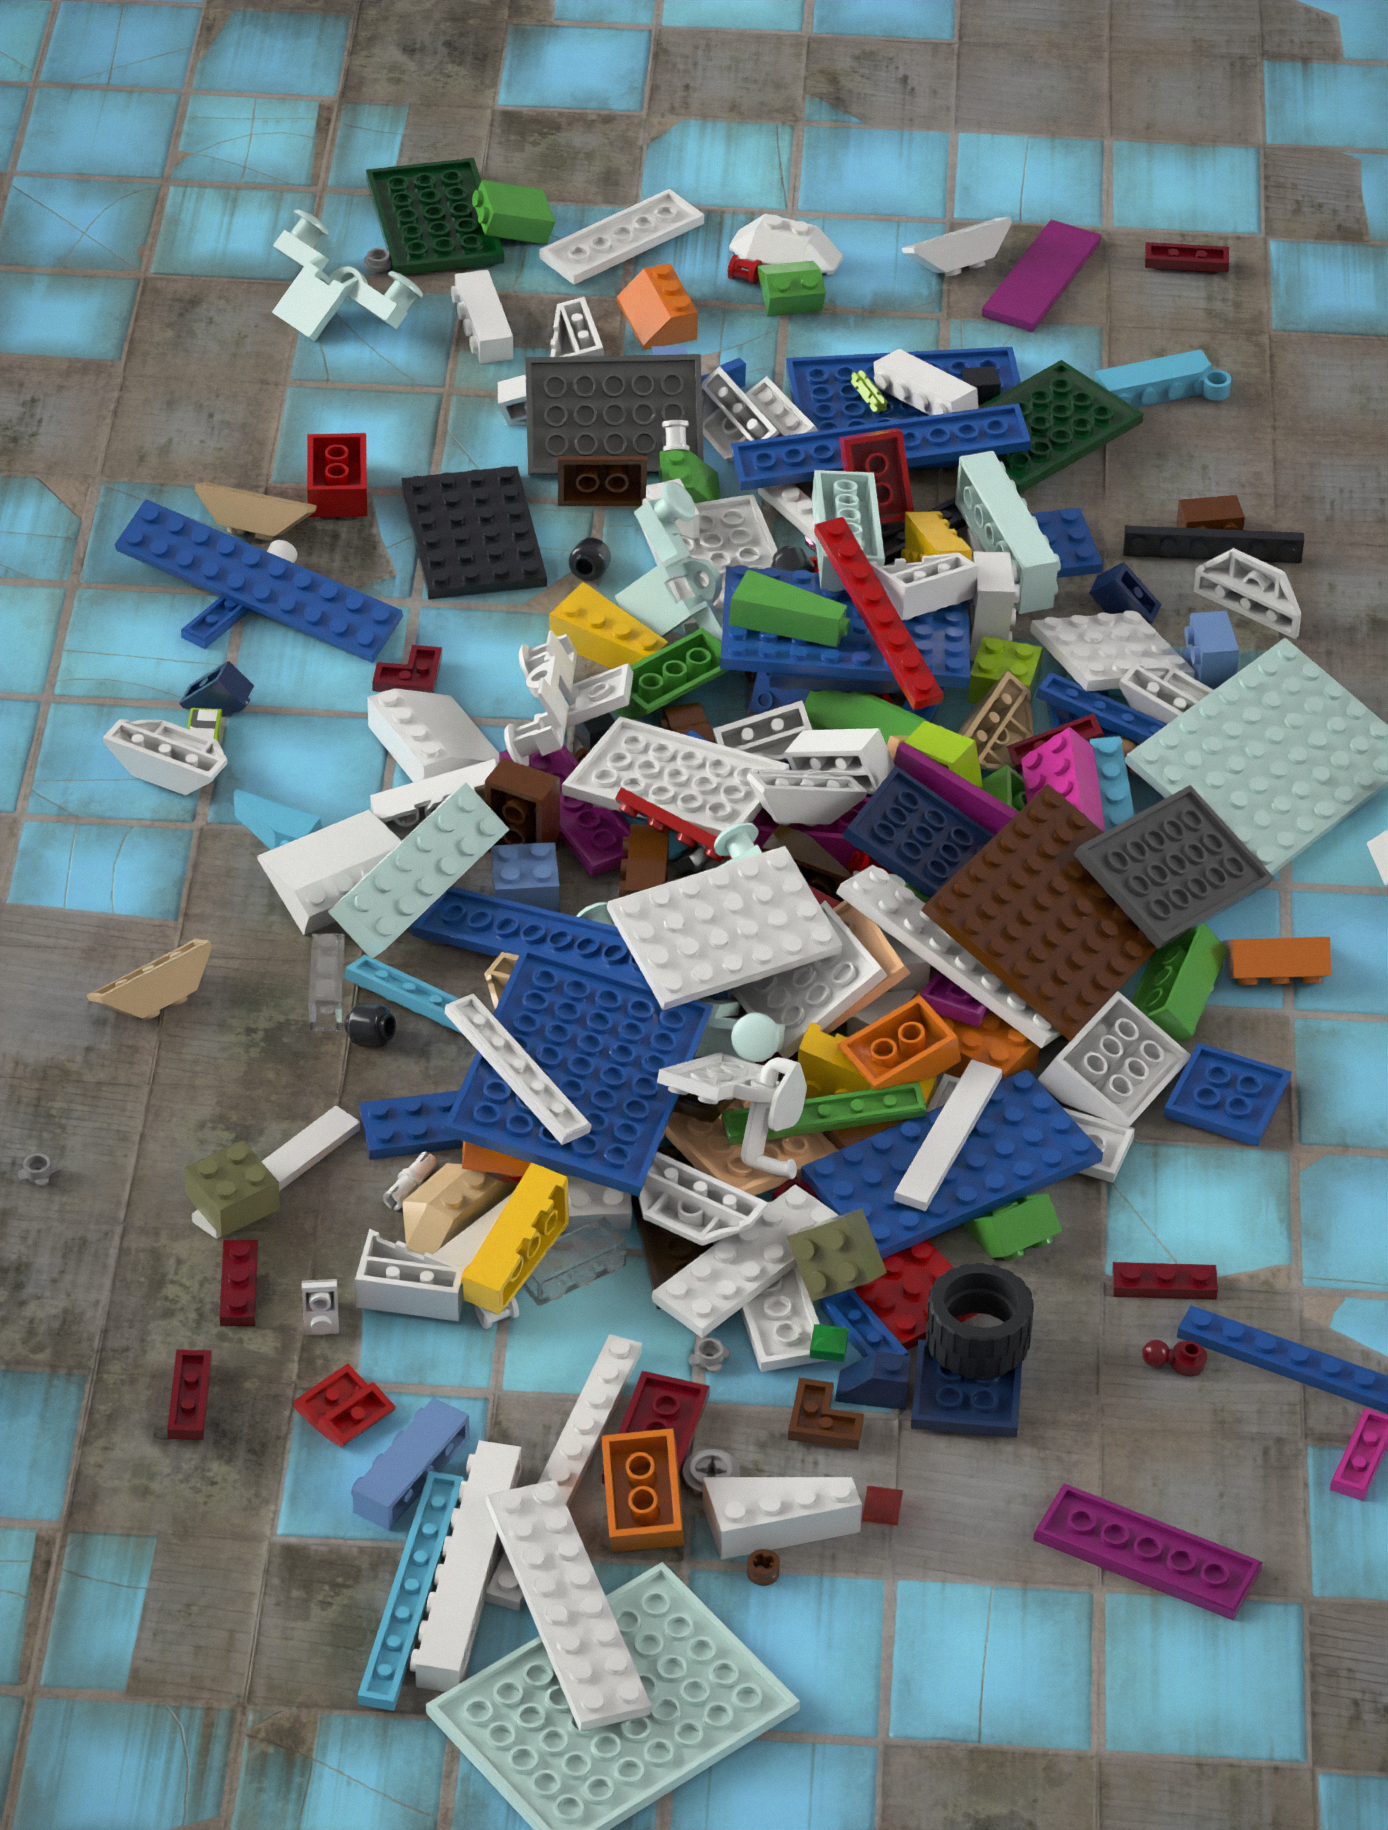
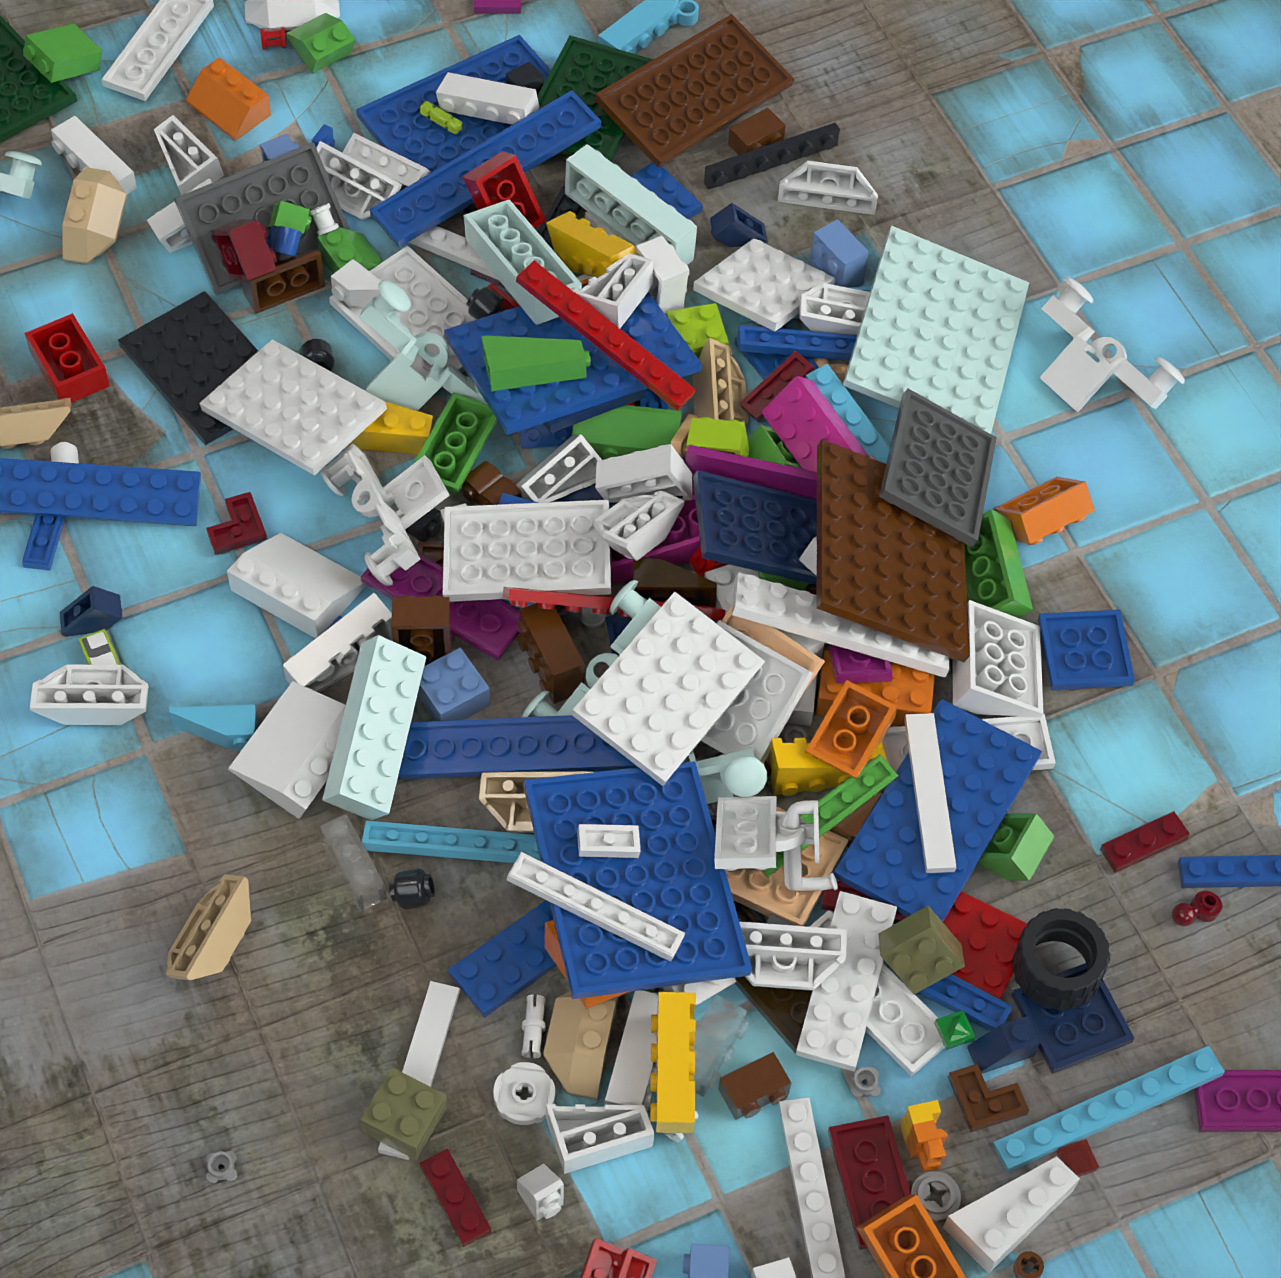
camera: 30 degrees left, 15 degrees up
(347, 1216) = (512, 1081): none -> white plate
(443, 360) = (92, 215): none -> tan wedge
(530, 584) = (293, 407): none -> white plate
(568, 425) = (244, 249): none -> dark red brick
(568, 1022) = (608, 841): none -> white plate
(592, 1310) = (755, 1086): none -> reddish brown brick
(621, 439) = (284, 240): none -> blue piece
(639, 421) = (290, 216): none -> bright green brick
(733, 1408) = (922, 1136): none -> orange hips
(956, 1475) = (1108, 1109): none -> medium azure plate
(1164, 452) = (694, 90): none -> reddish brown plate

